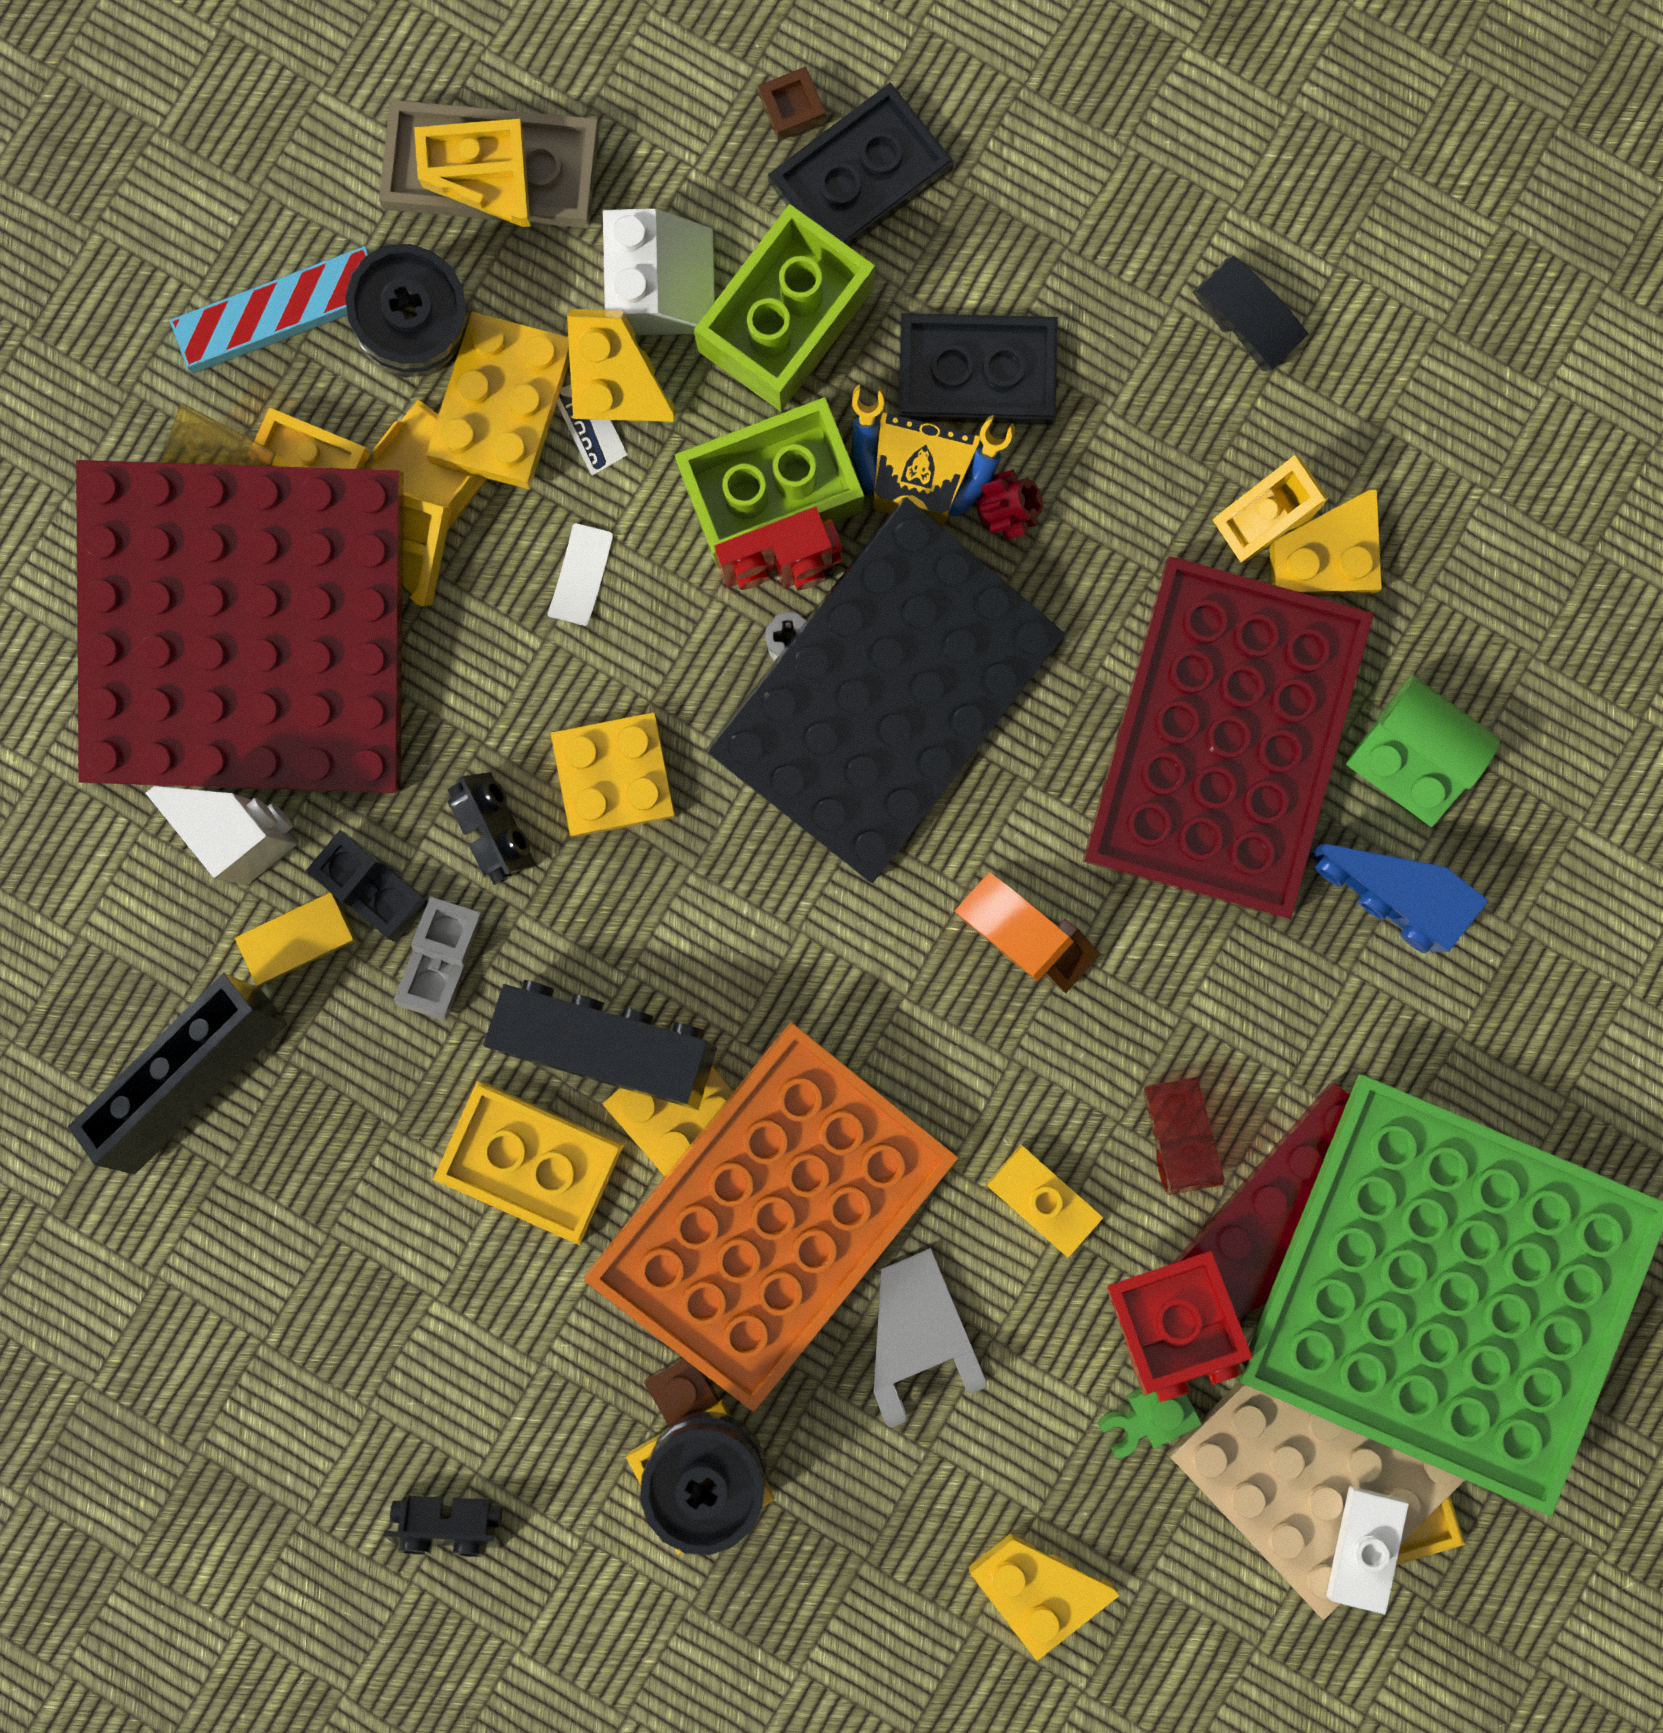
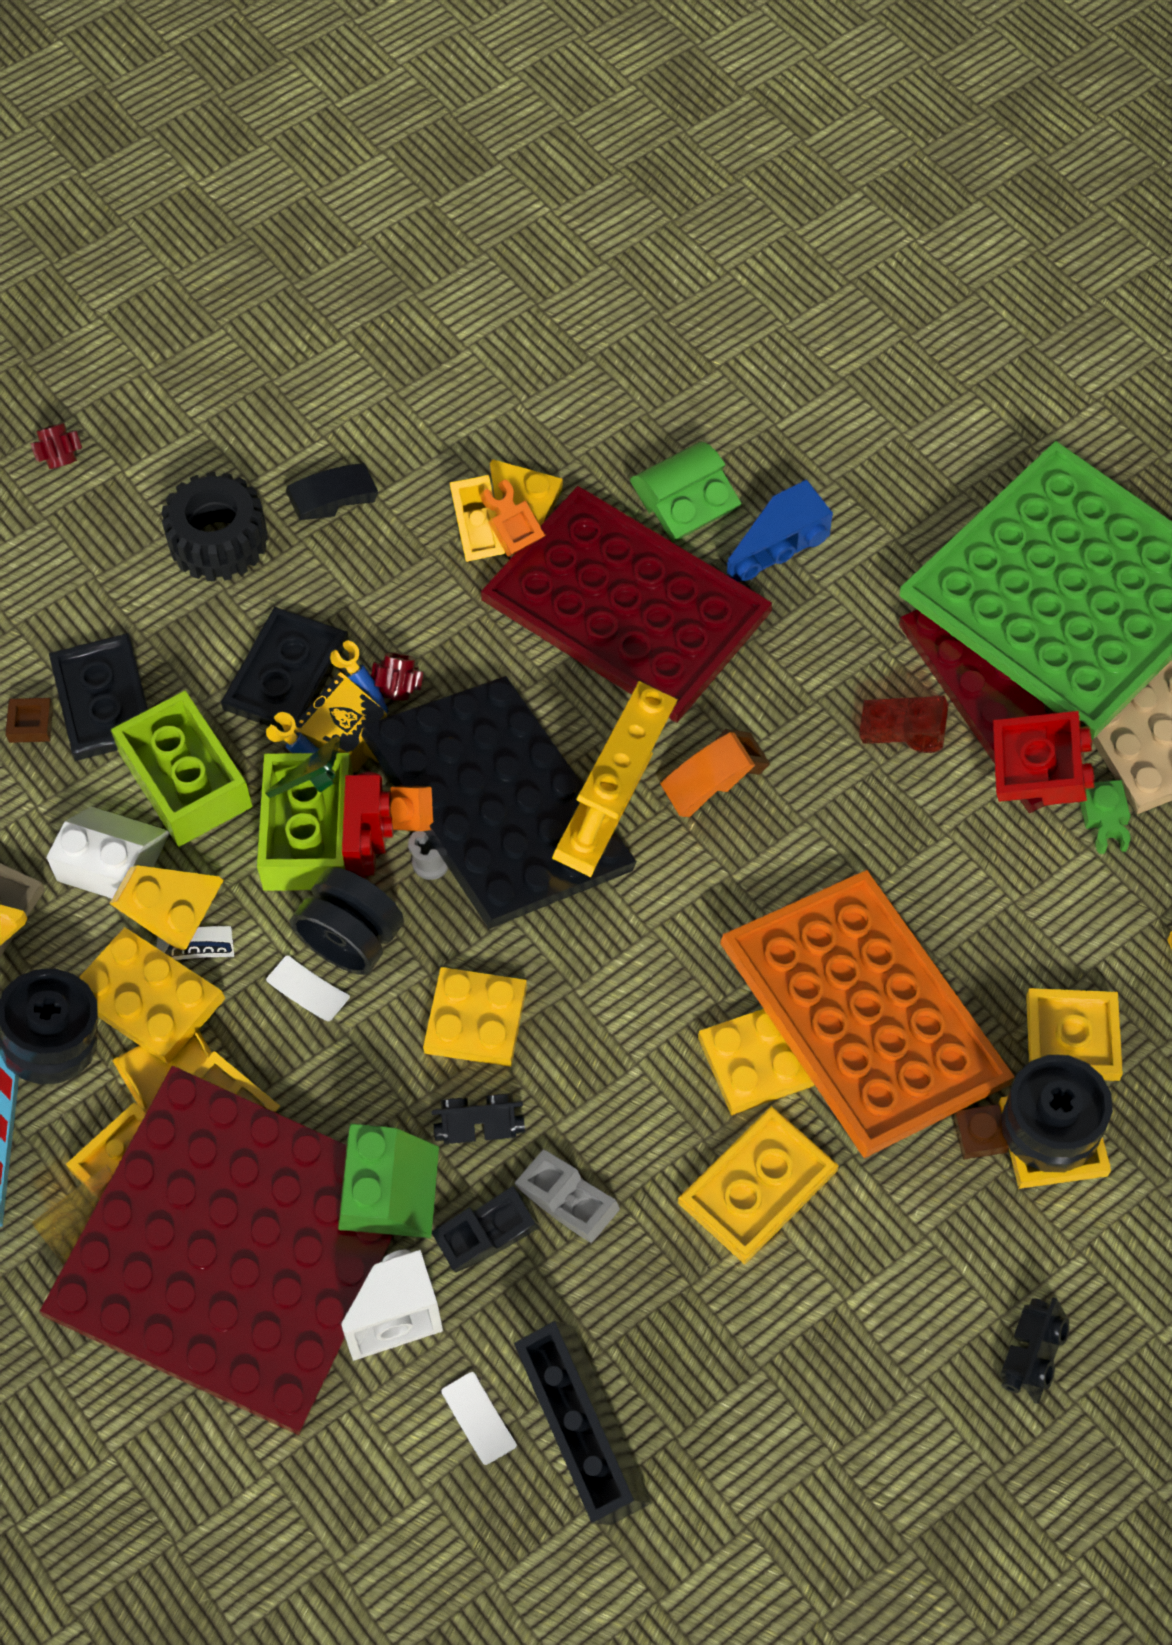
camera: 70 degrees left, 25 degrees down
(166, 960) = (478, 1418): none -> white sticker
(295, 939) = (504, 1301): yellow tile -> none
(354, 764) = (388, 1182): none -> bright green slope
(601, 1045) = (685, 1082): black brick -> none
(652, 586) = (347, 920): none -> black wheel
(812, 464) = (315, 768): none -> dark green piece
(817, 599) = (411, 808): none -> orange plate
(836, 1463) = (1077, 1026): none -> yellow plate
(917, 1332) = (992, 946): light grey flag -> none
(941, 826) = (614, 779): none -> yellow fence
(1044, 1201) = (920, 829): yellow plate -> none
(1144, 154) = (212, 501): none -> black tyre
(1275, 558) = (514, 524): none -> orange plate

